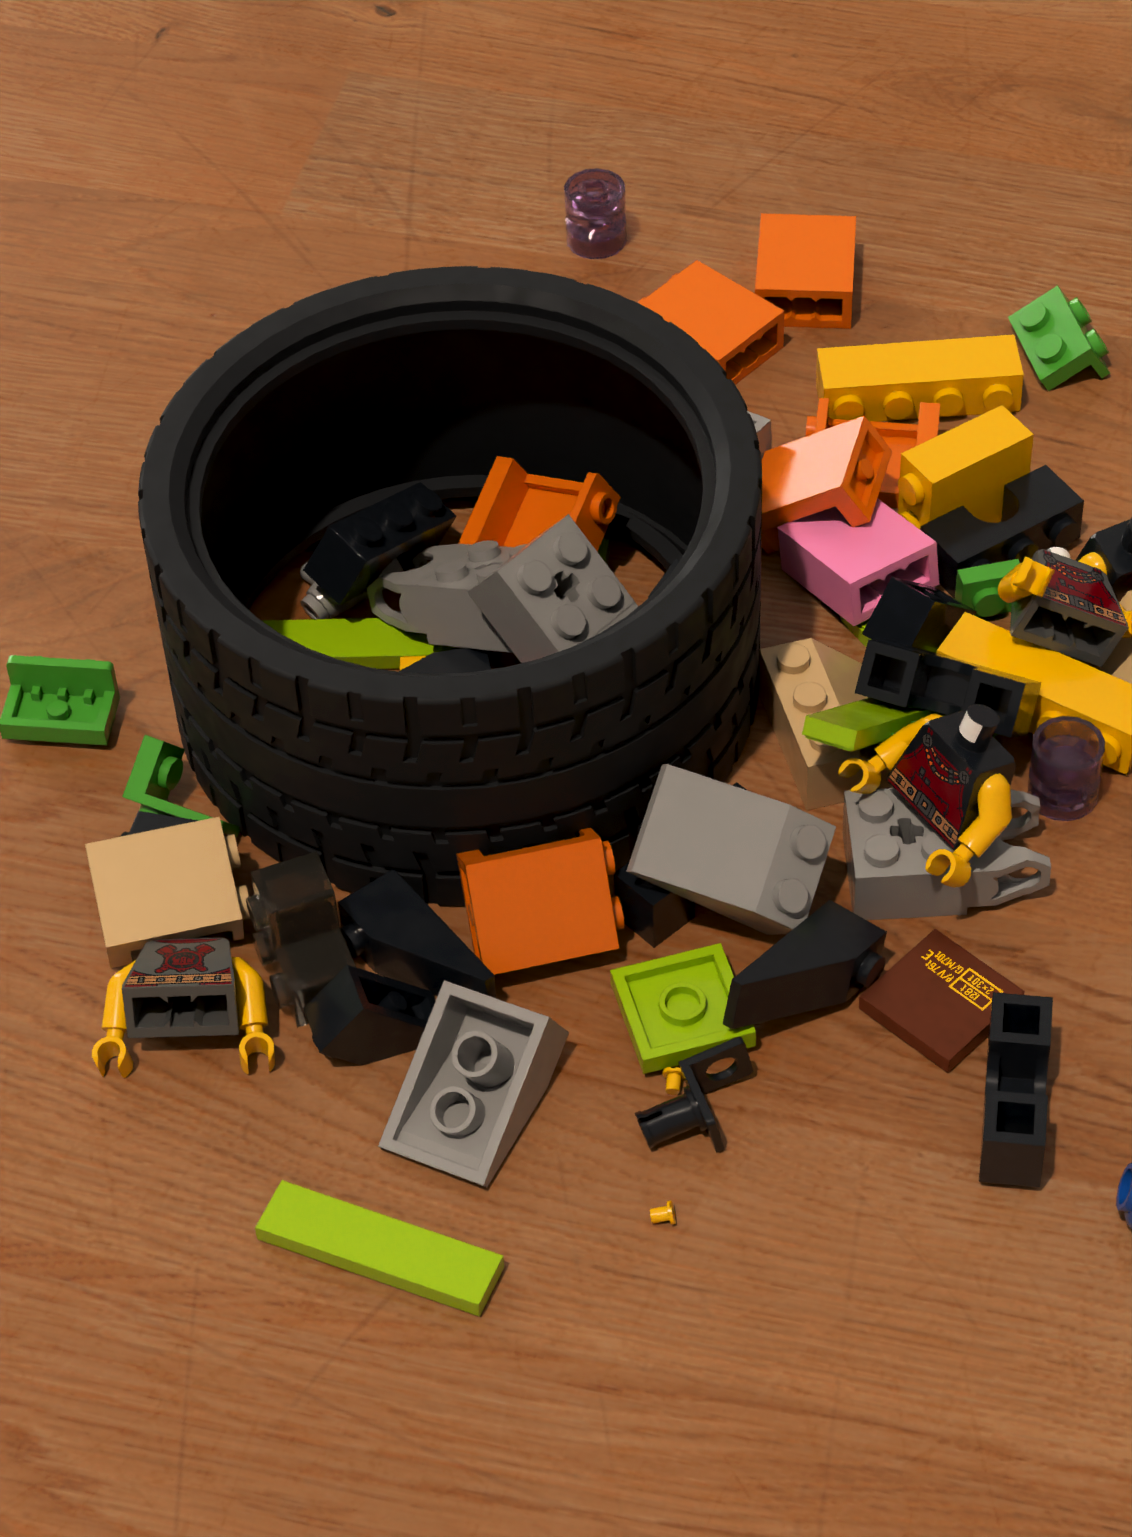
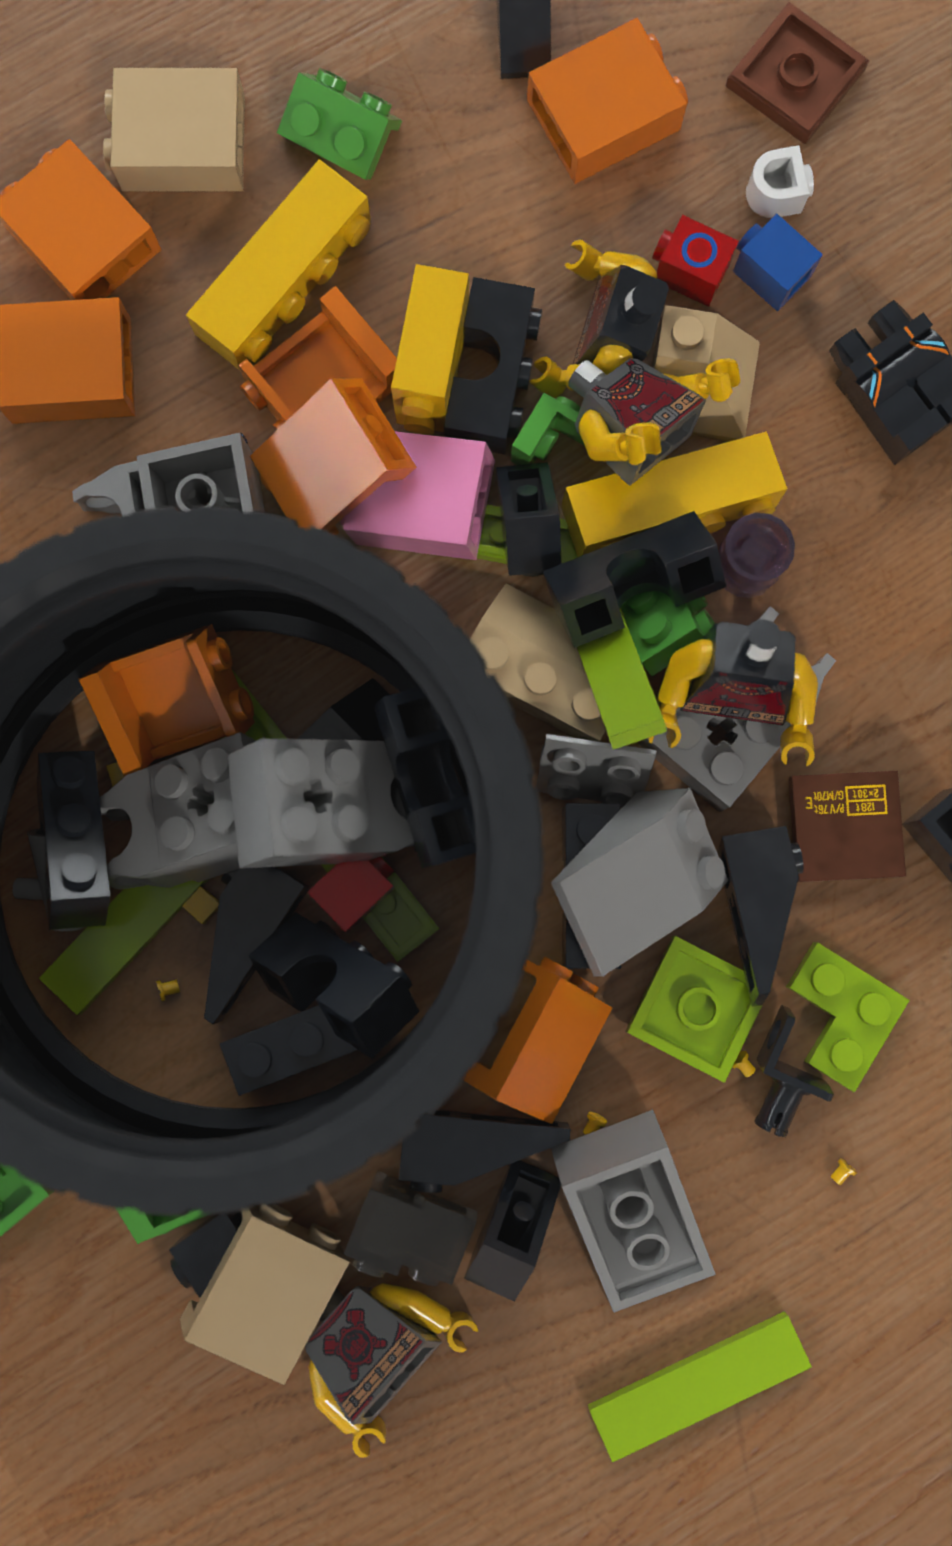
camera: 50 degrees left, 35 degrees up
(786, 770) = (592, 770): none -> light grey hinge
(802, 1125) = (860, 1012): none -> lime plate
(939, 269) = (176, 129): none -> tan brick

